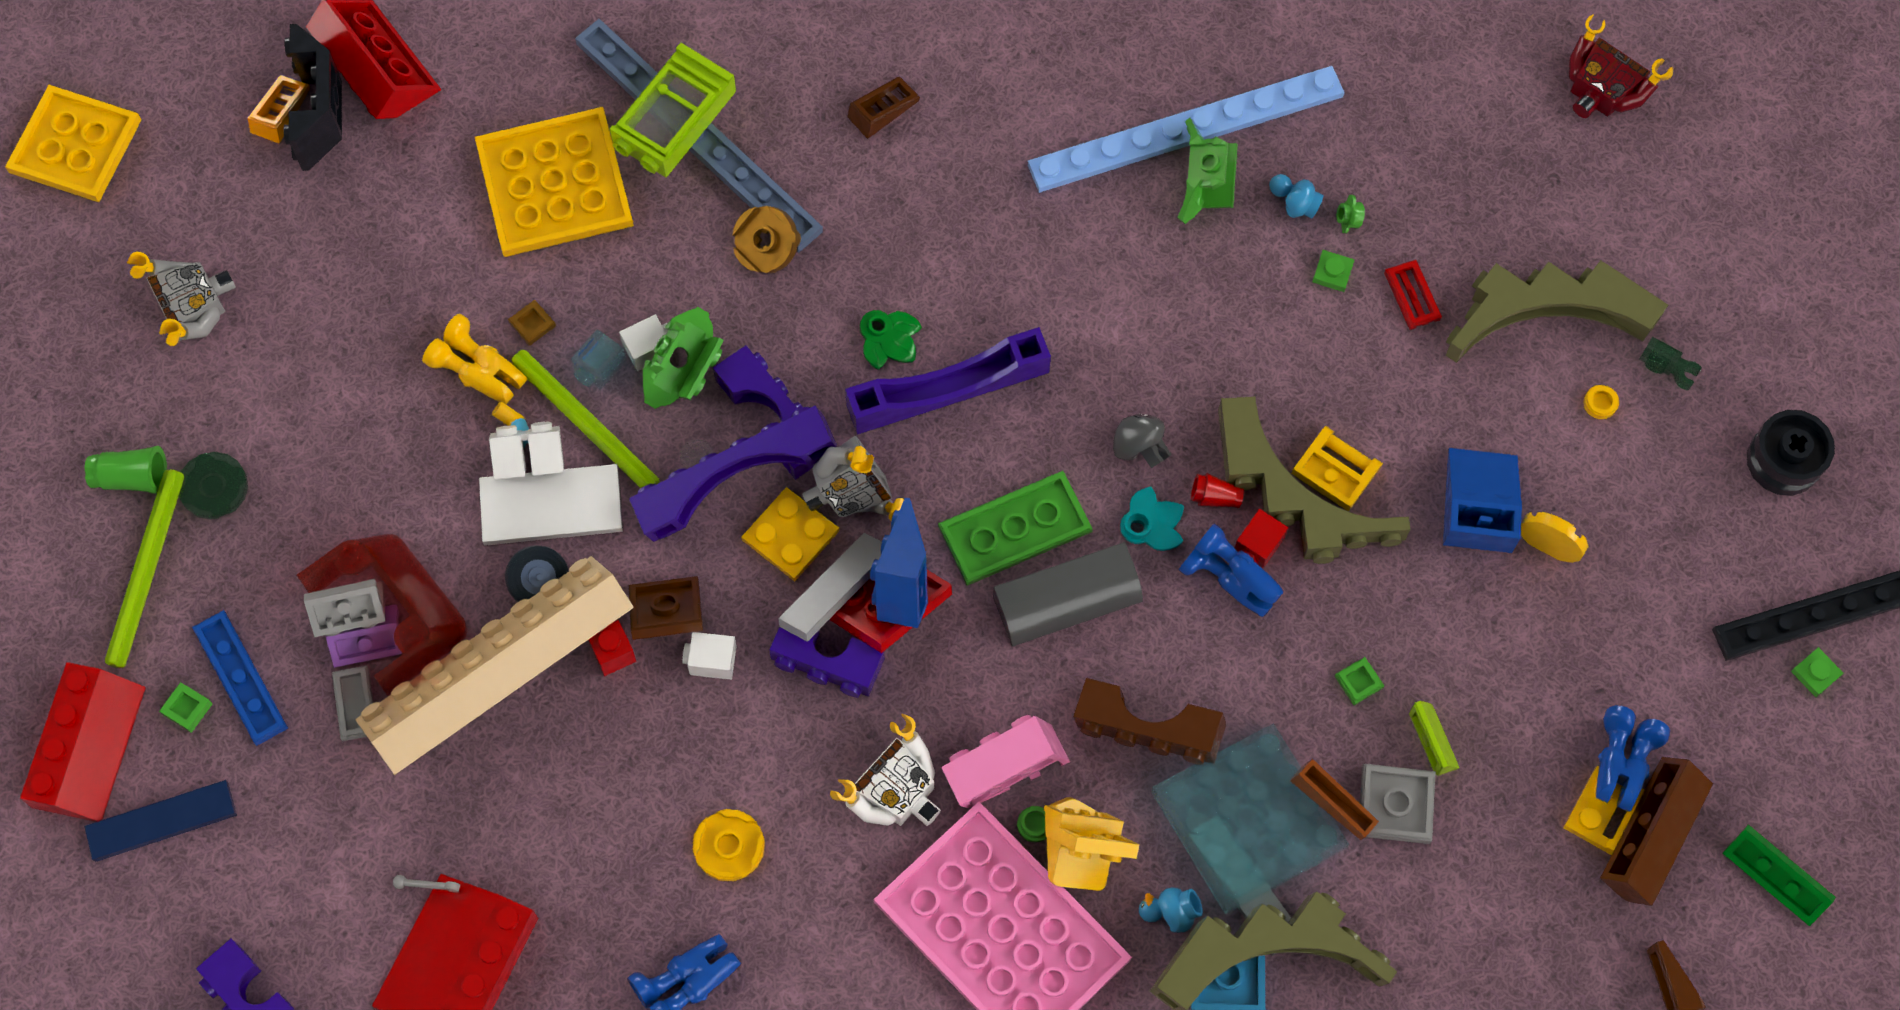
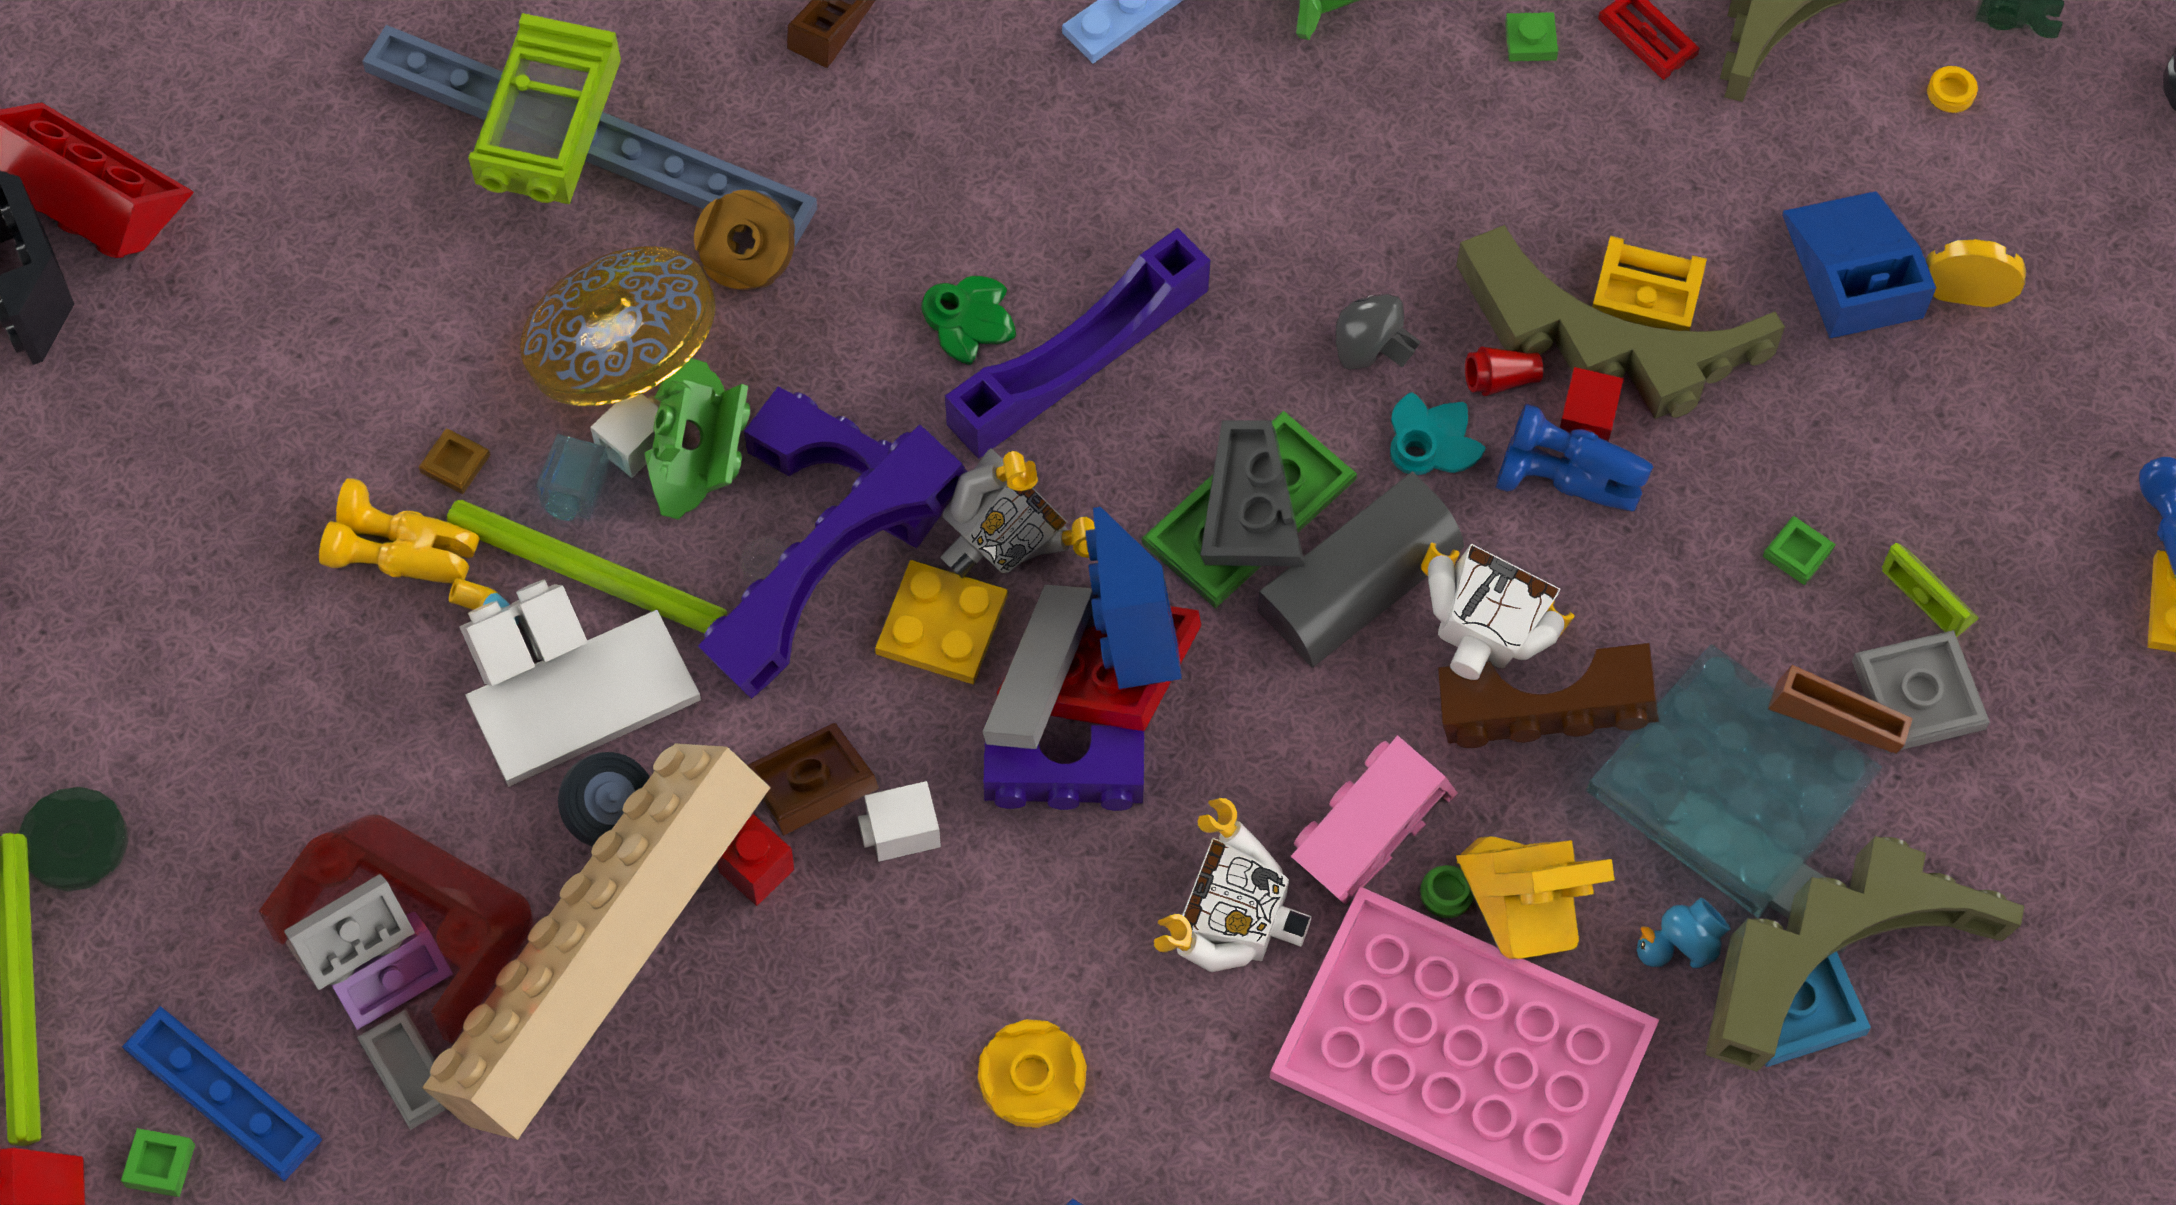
camera: 20 degrees left, 5 degrees down
(553, 181) = (409, 262): yellow plate -> none
(662, 270) = (617, 326): none -> clear yellow dish
(1013, 524) = (1250, 501): none -> dark grey wing
(1133, 653) = (1490, 609): none -> white torso

